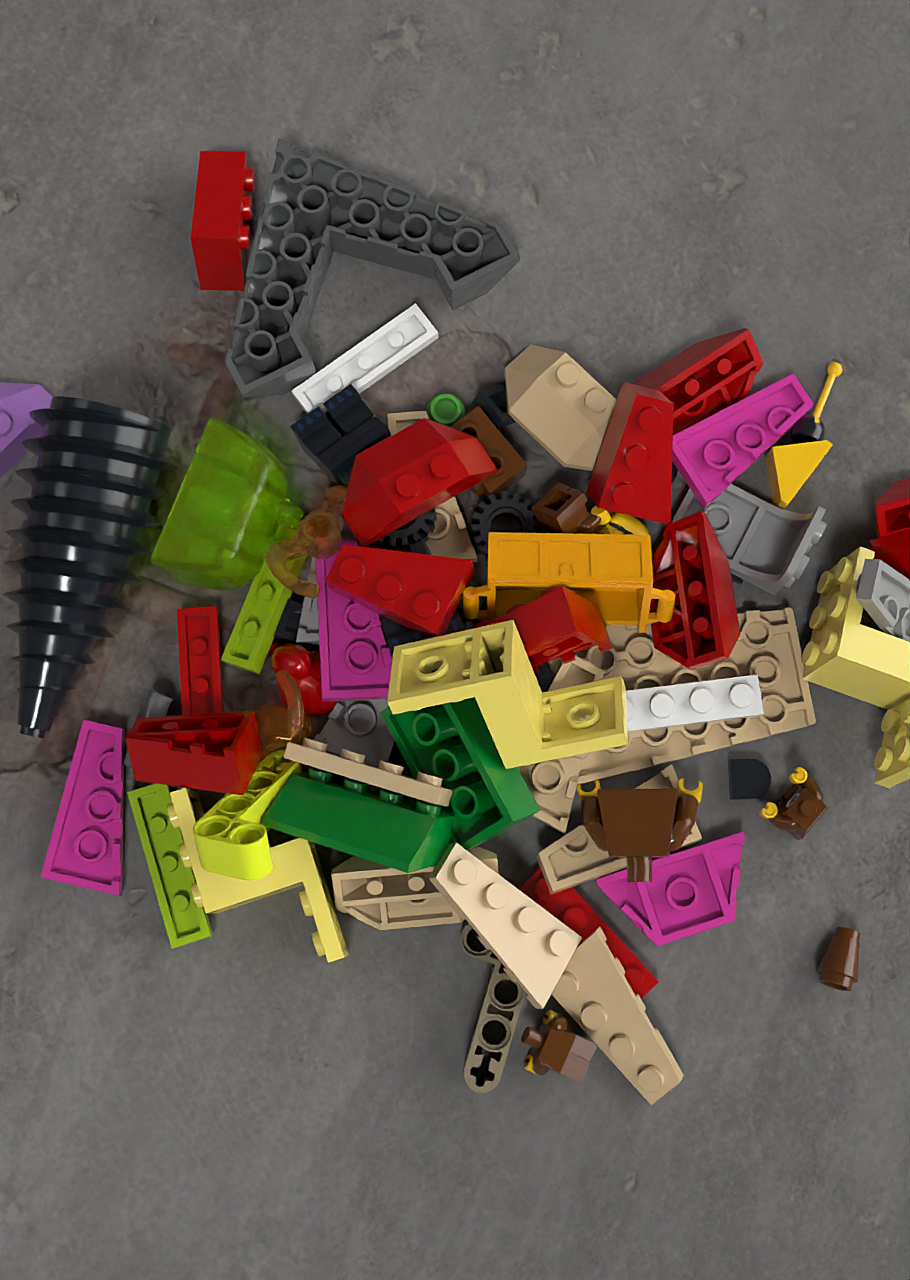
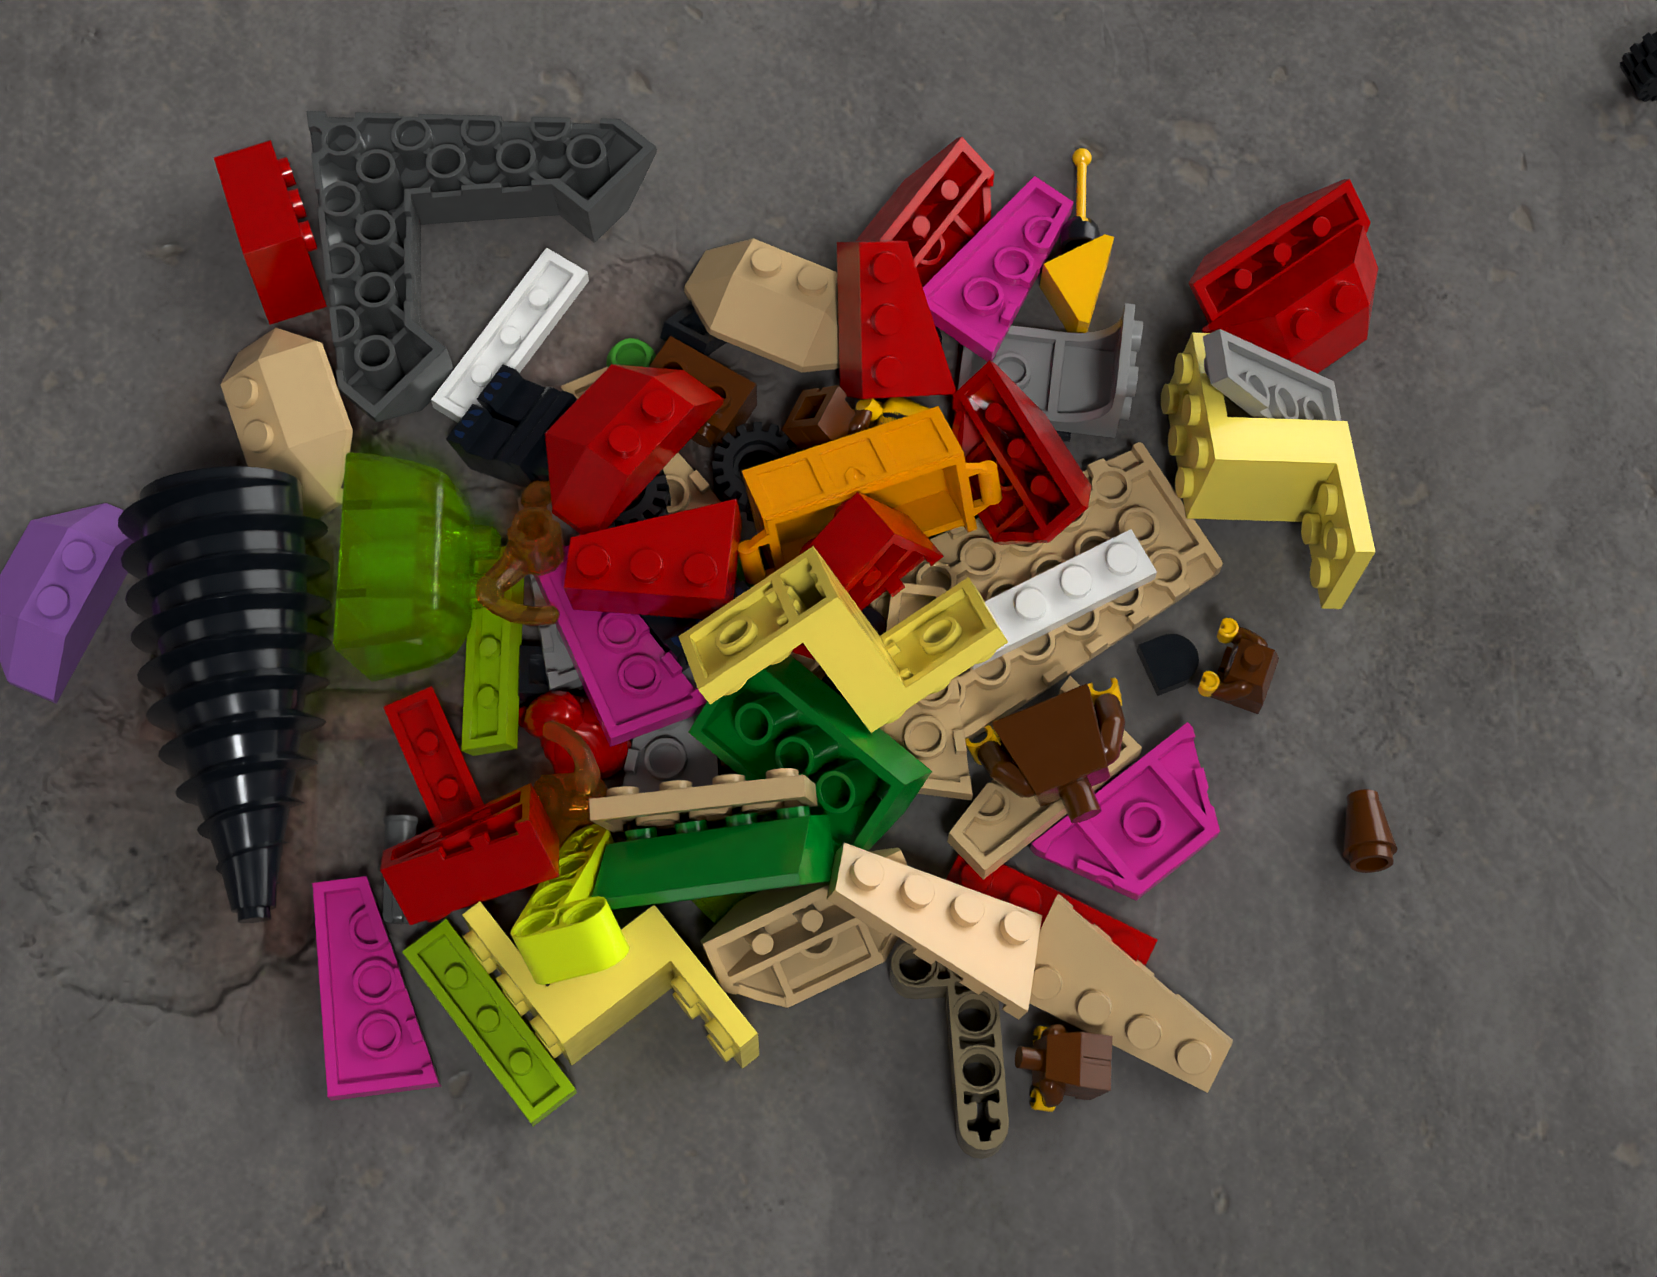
camera: 20 degrees left, 10 degrees down
(184, 370) = (291, 415): none -> tan wedge

